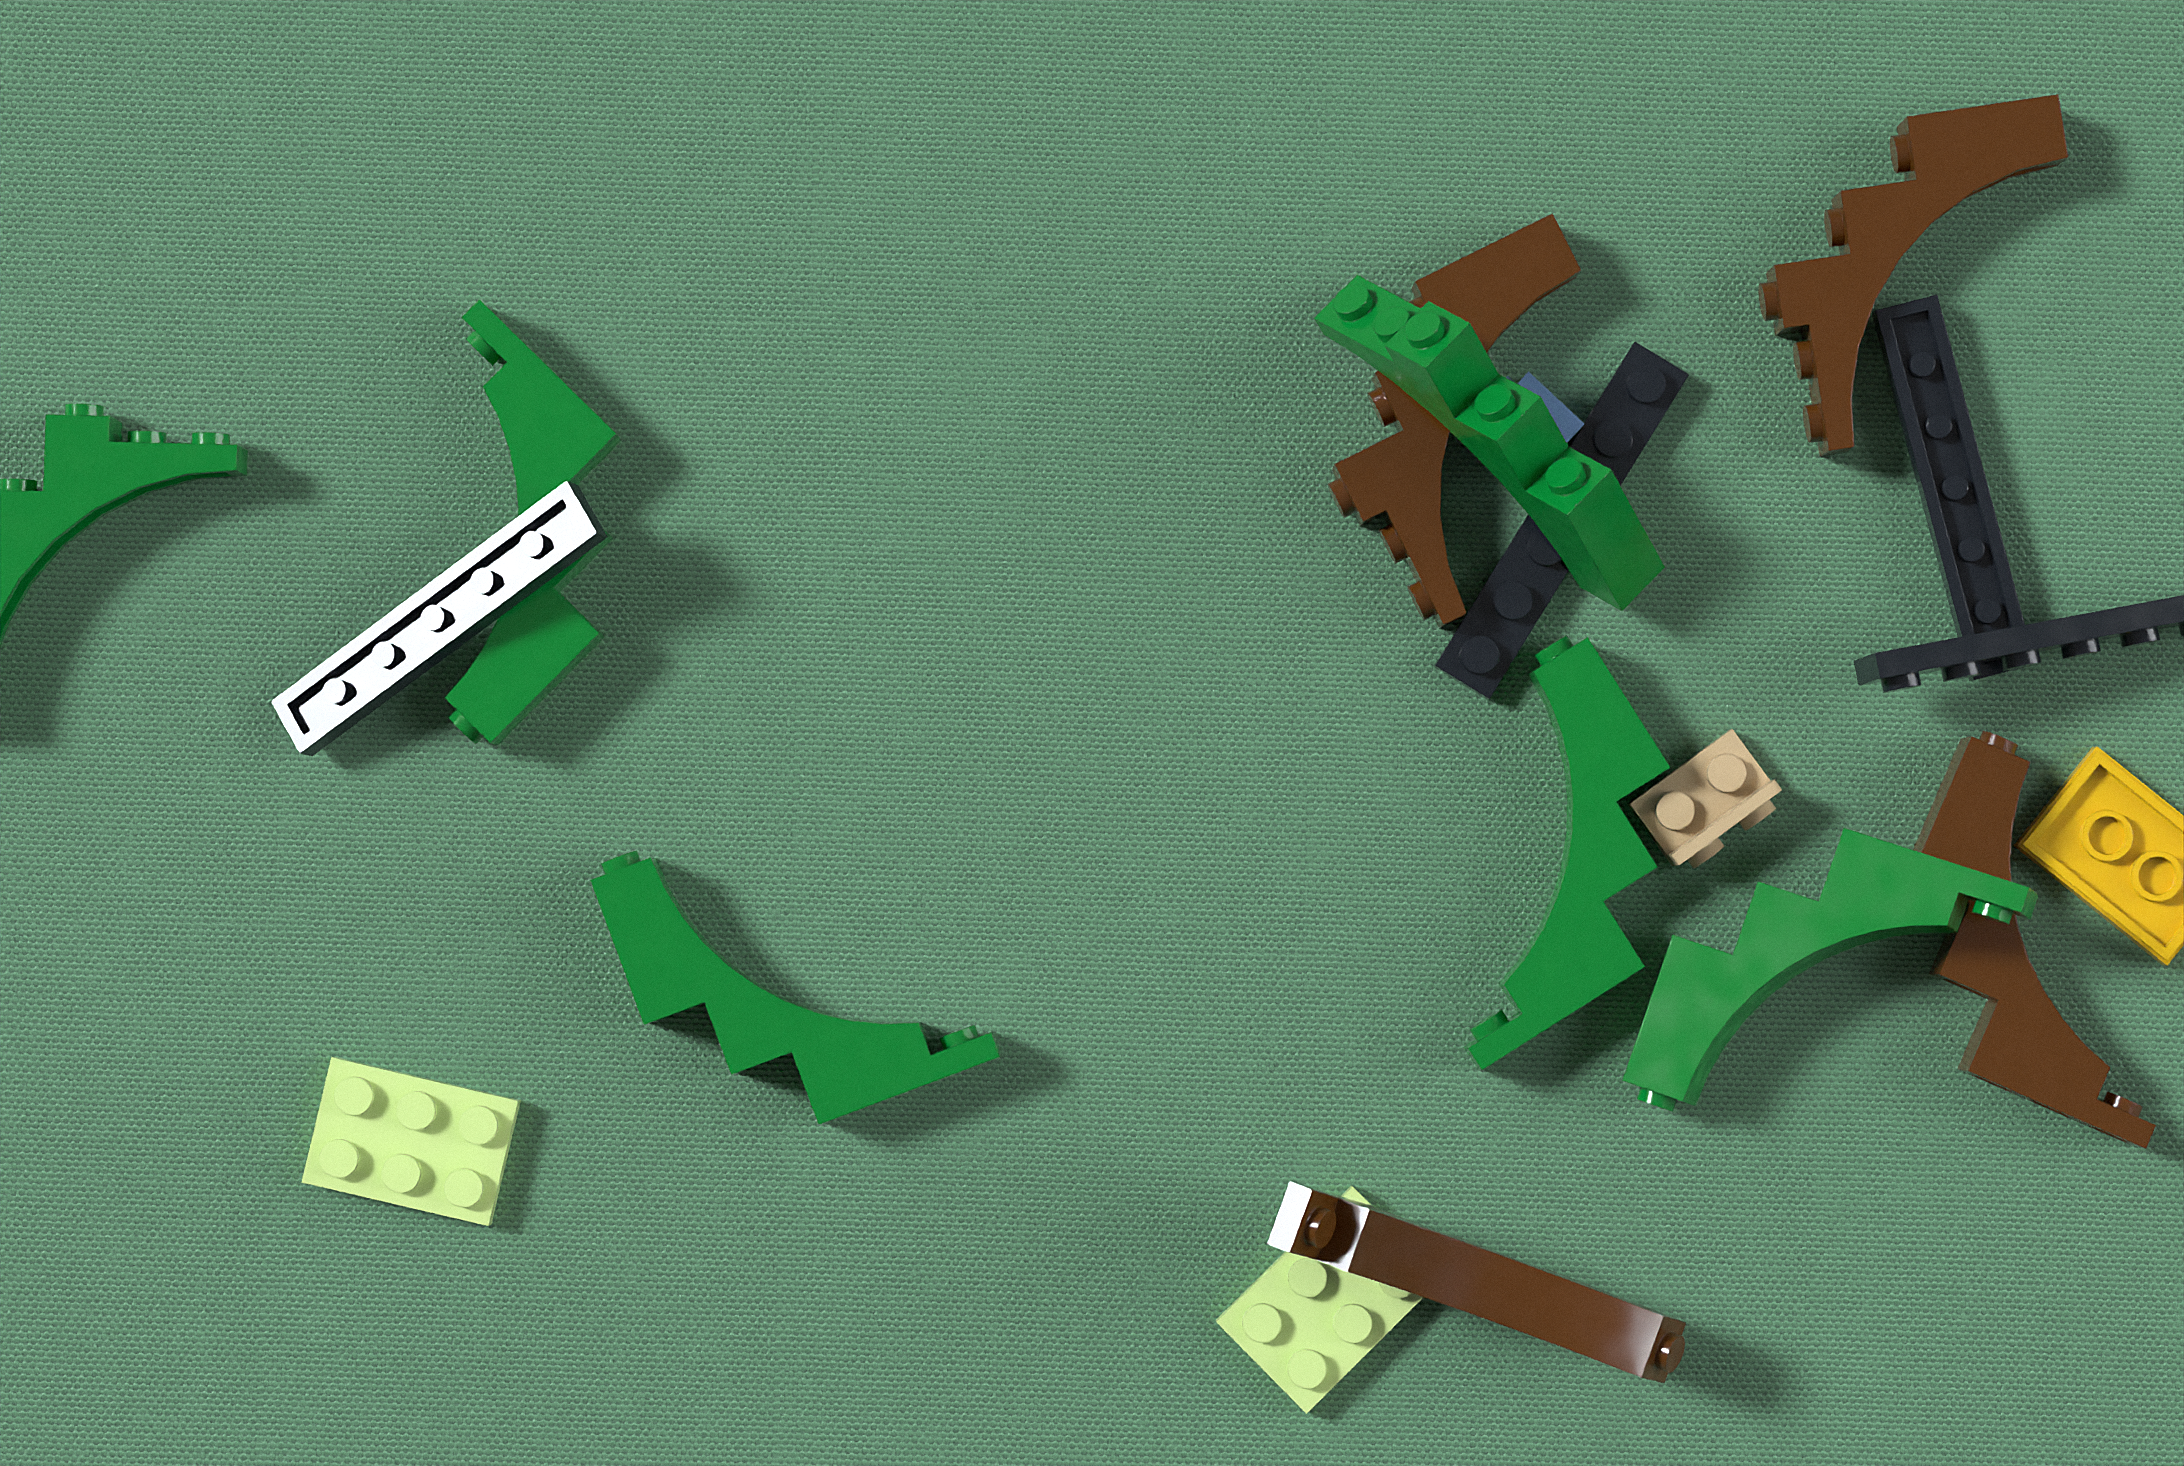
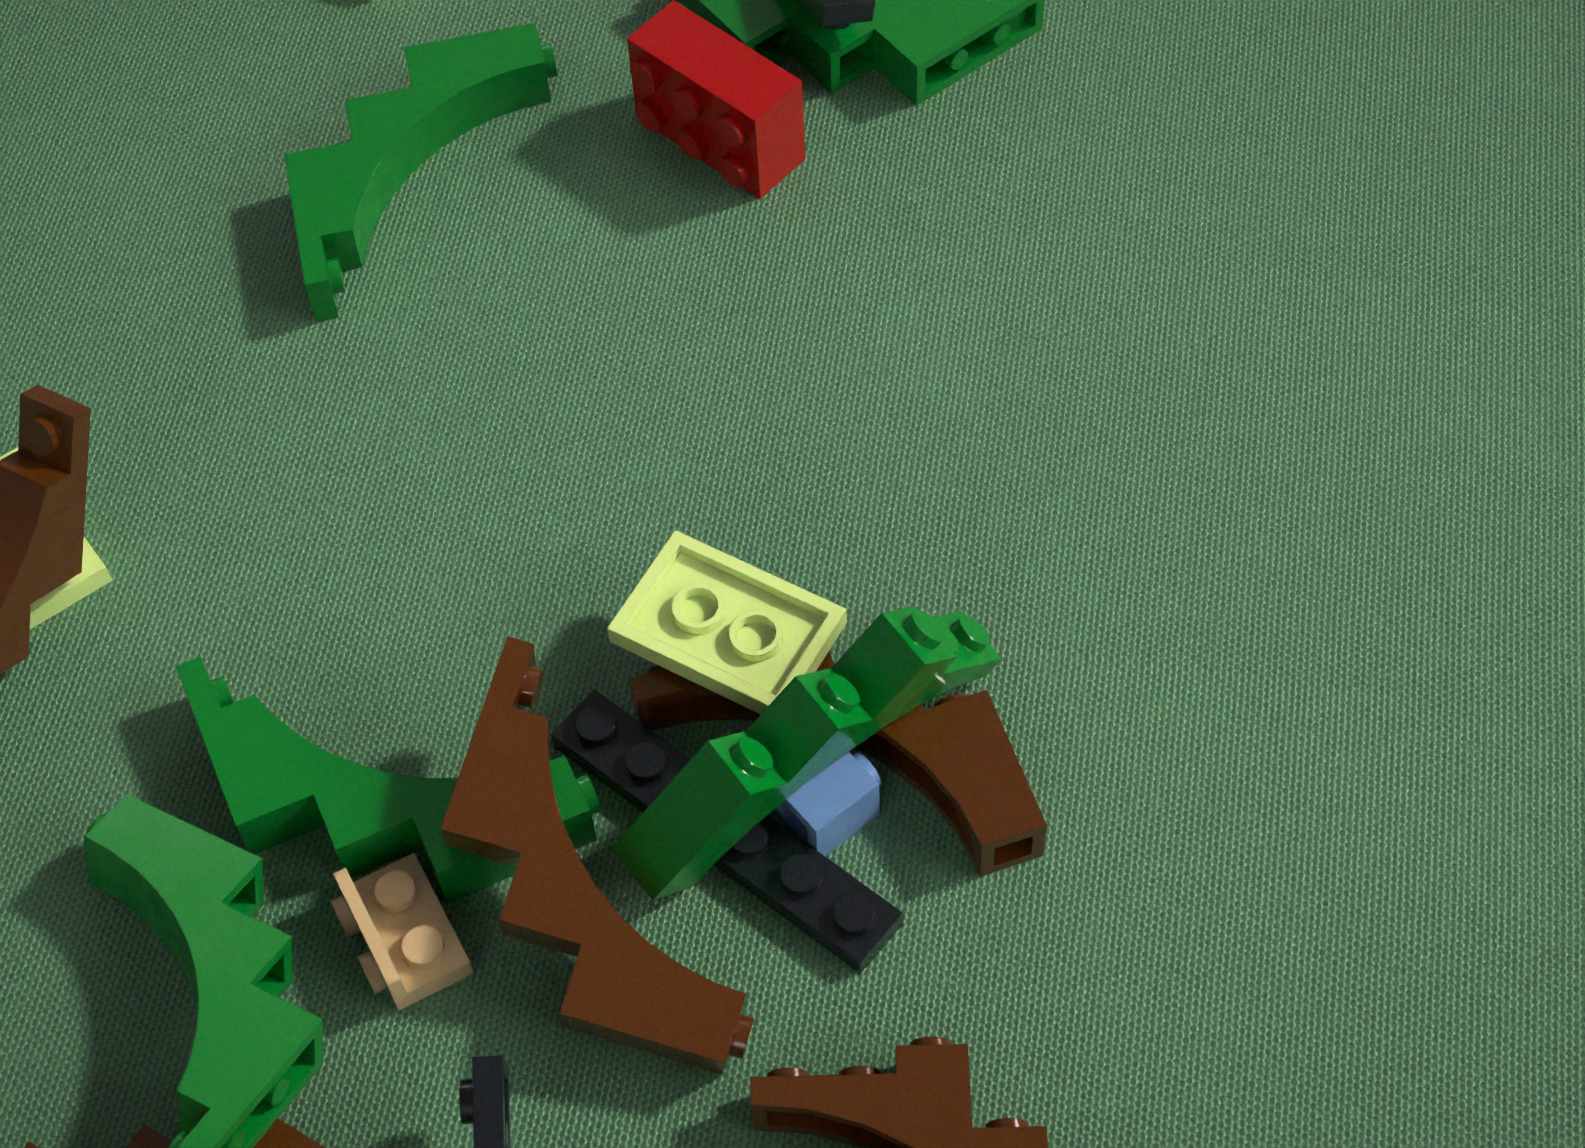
camera: 100 degrees right, 30 degrees down
(690, 653) = (717, 99): none -> red brick
(1389, 532) = (725, 623): none -> yellowish green plate
(1623, 701) = (511, 815): none -> reddish brown arch

